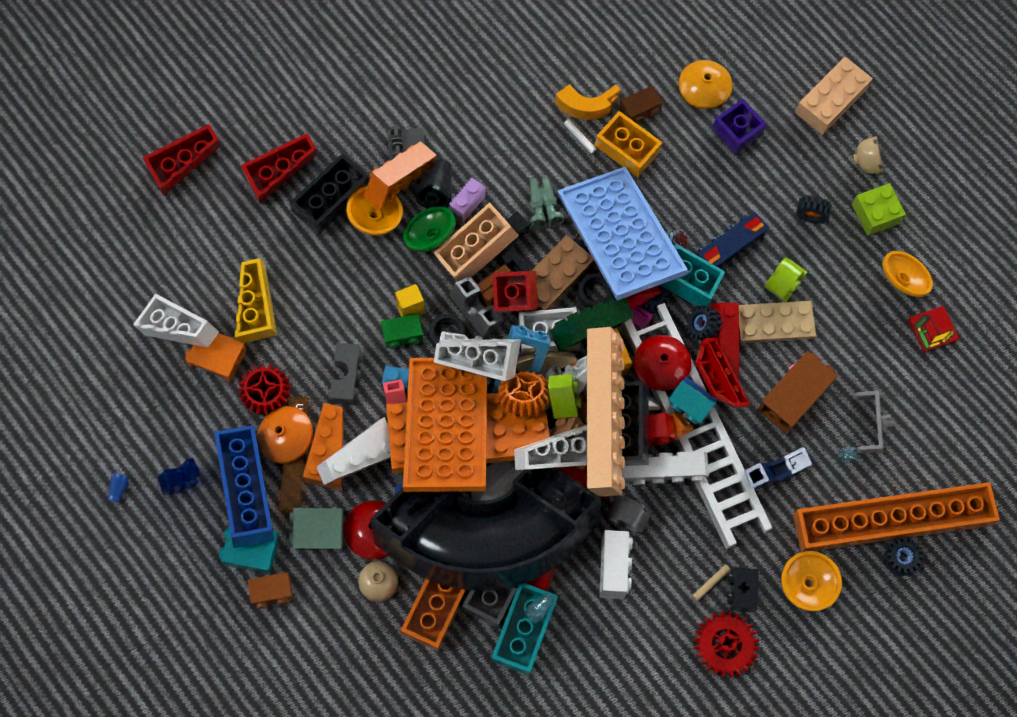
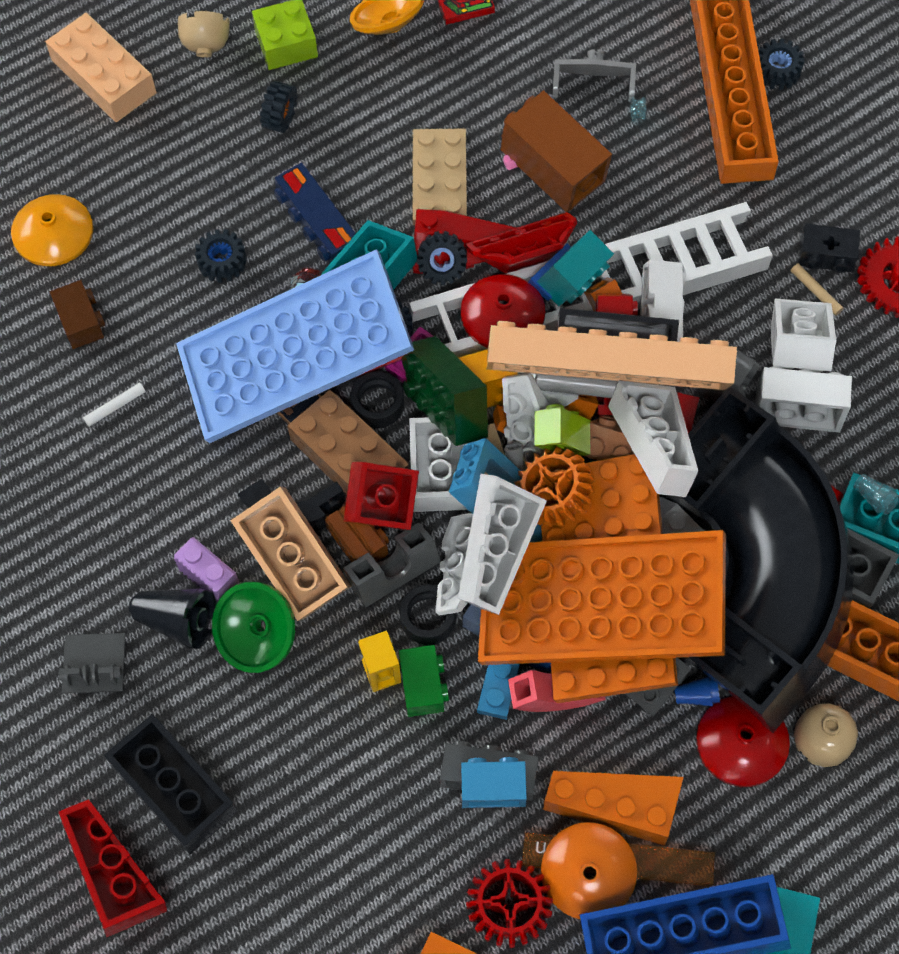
camera: 80 degrees left, 5 degrees down
(255, 309) = (364, 913): yellow wedge -> none
(270, 590) = (847, 899): dark orange brick -> none
(317, 528) = (747, 821): sand green brick -> none
(331, 370) = (493, 783): none -> dark azure brick
(360, 212) = (203, 698): light orange dish -> none
(362, 452) = (635, 745): white wedge -> none
(398, 174) = (155, 667): orange wedge -> none
(544, 197) = (210, 464): sand green piece -> none
(586, 108) = (68, 394): light orange arch -> none
(628, 144) = (142, 333): light orange brick -> none
(662, 562) = (803, 335): none -> white brick
(703, 190) = (221, 244): none -> black bush
(739, 126) = (133, 186): dark purple brick -> none
(774, 472) = (658, 188): dark blue arch -> none
(785, 279) = (382, 150): lime brick -> none
(821, 573) = (819, 154): light orange dish -> none

